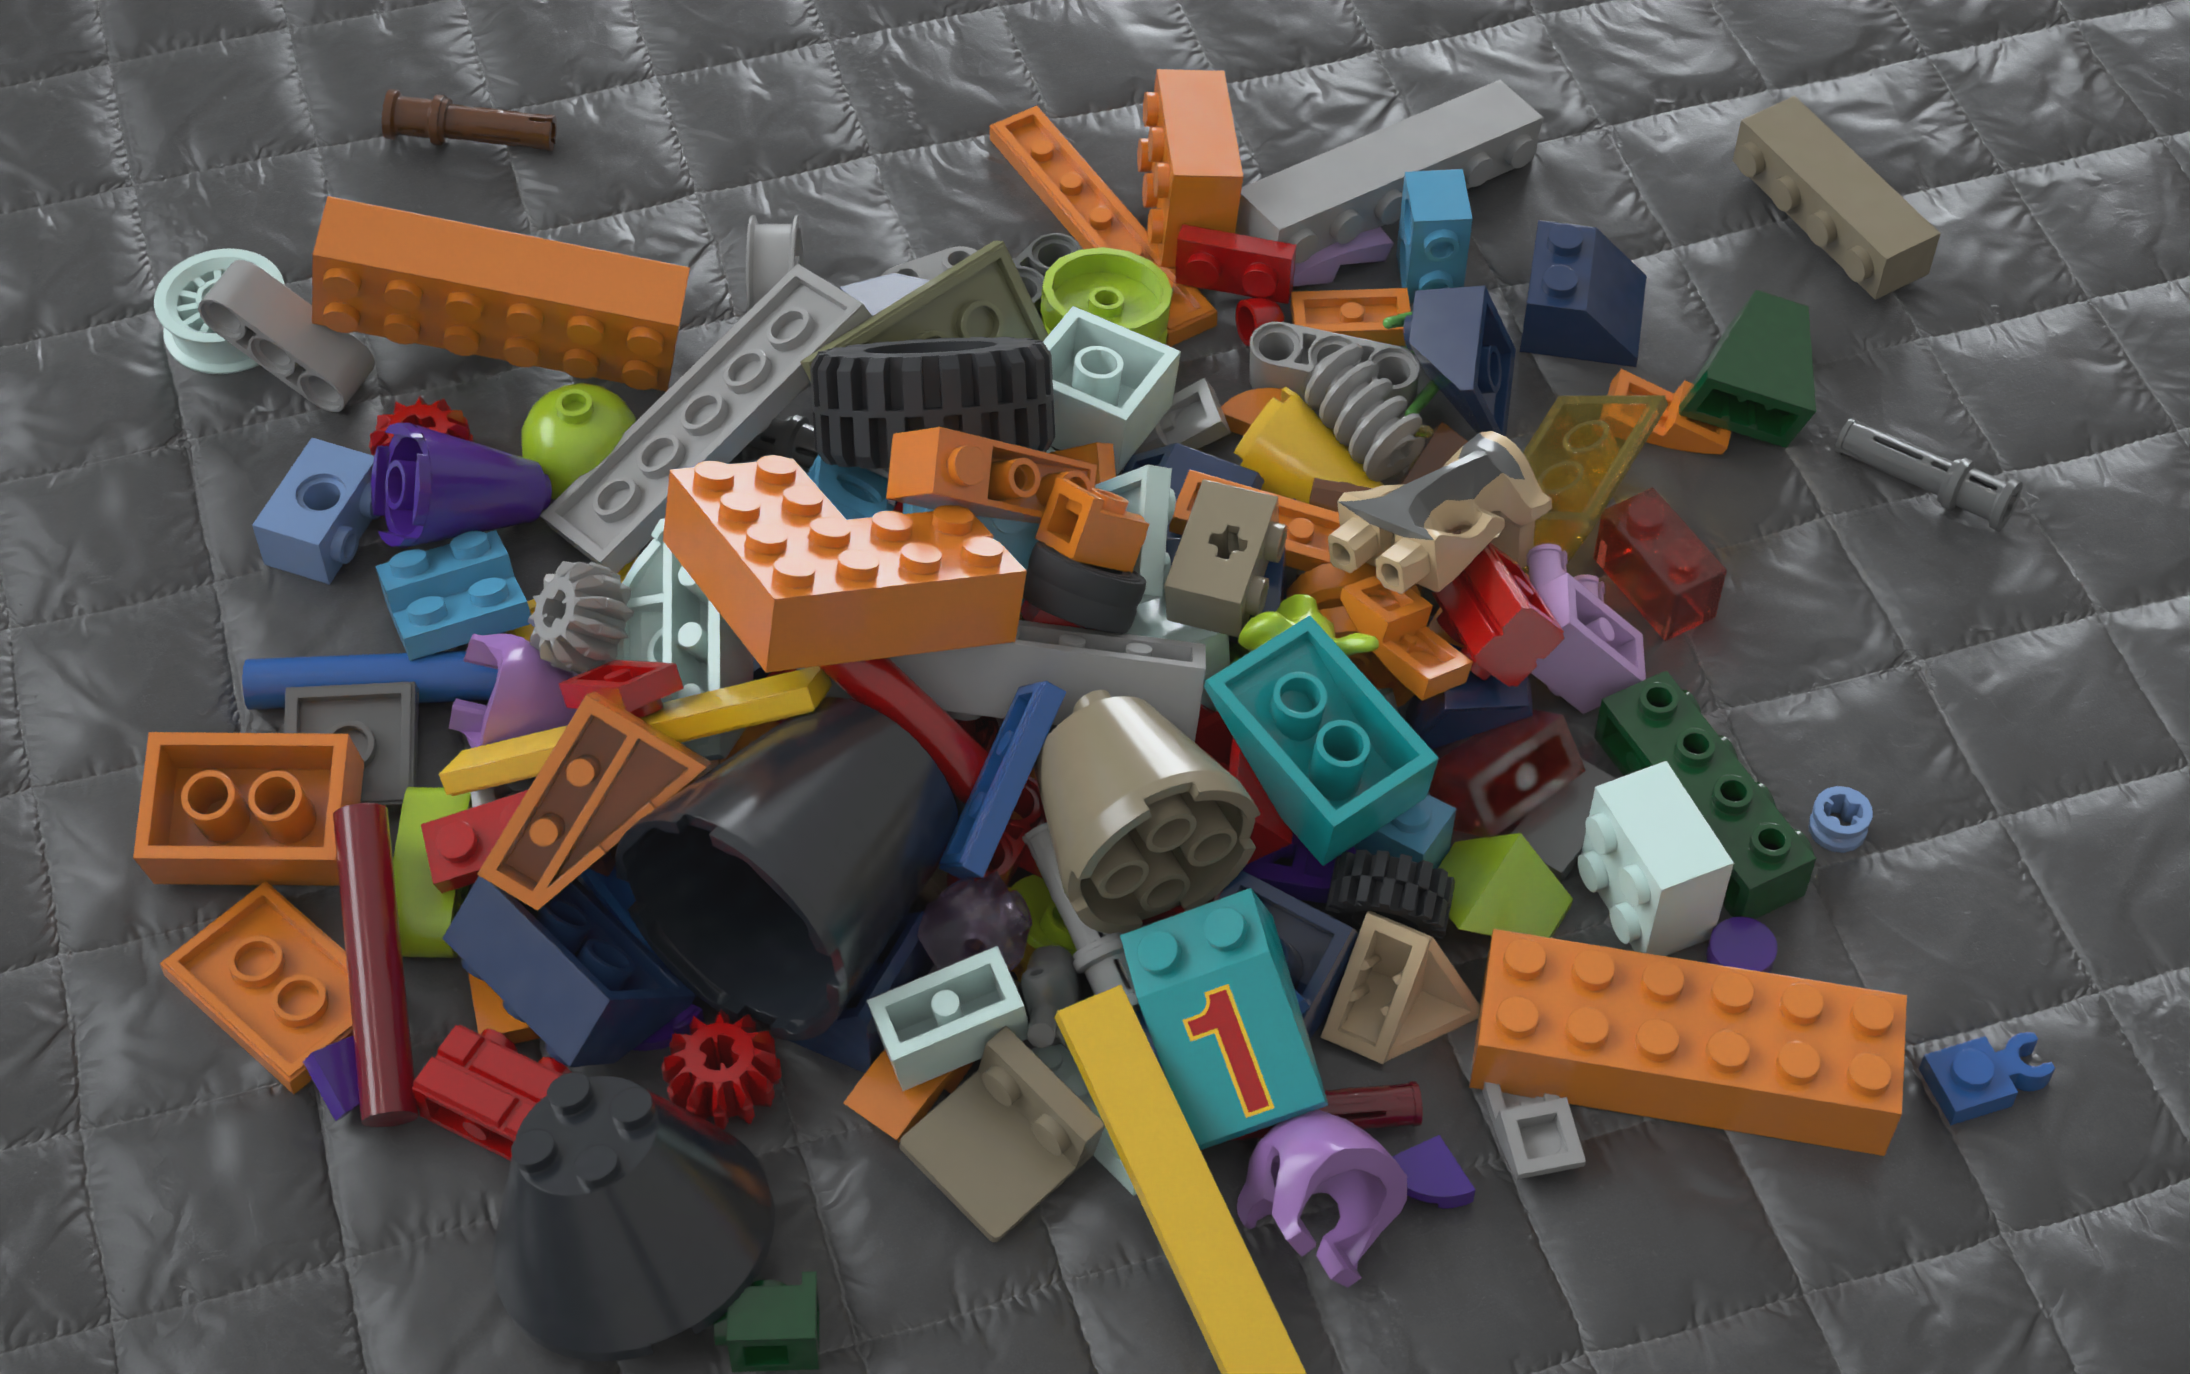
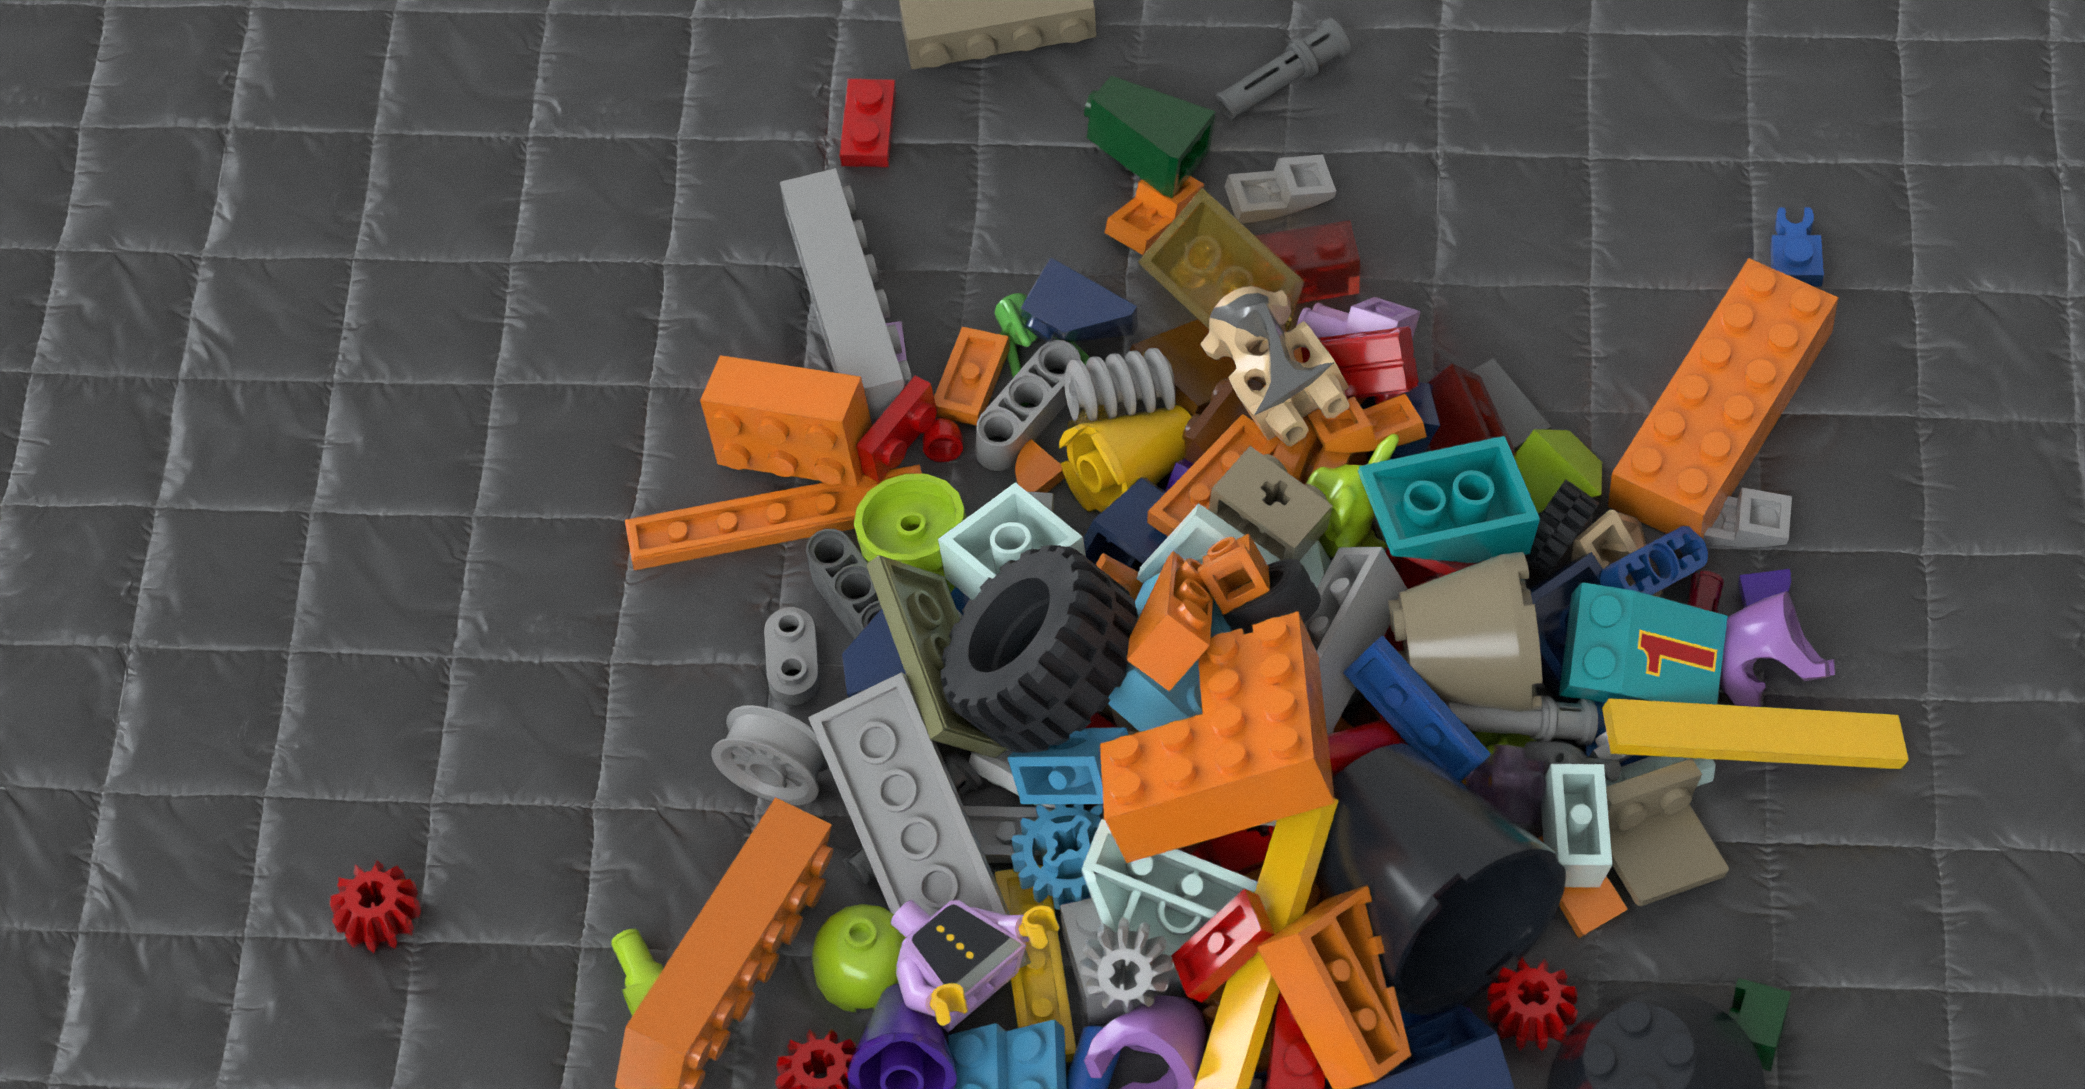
camera: 65 degrees left, 5 degrees up
(444, 121) = (423, 978): reddish brown pin -> none
(508, 60) = (356, 910): none -> red gear
(551, 481) = (962, 955): none -> torso
(1433, 230) = (933, 286): dark azure brick -> none
(1436, 1034) = (1662, 553): none -> blue beam
(1582, 297) = (1016, 221): dark blue slope -> none
(1641, 147) = (868, 123): none -> red plate
(1654, 862) = (1583, 361): light aqua brick -> none
(1664, 723) = (1521, 317): dark green brick -> none
(1743, 945) = (1650, 347): dark purple tile -> none
(1759, 522) = (1289, 188): none -> light grey slope
(1853, 809) = (1574, 254): medium blue bush -> none

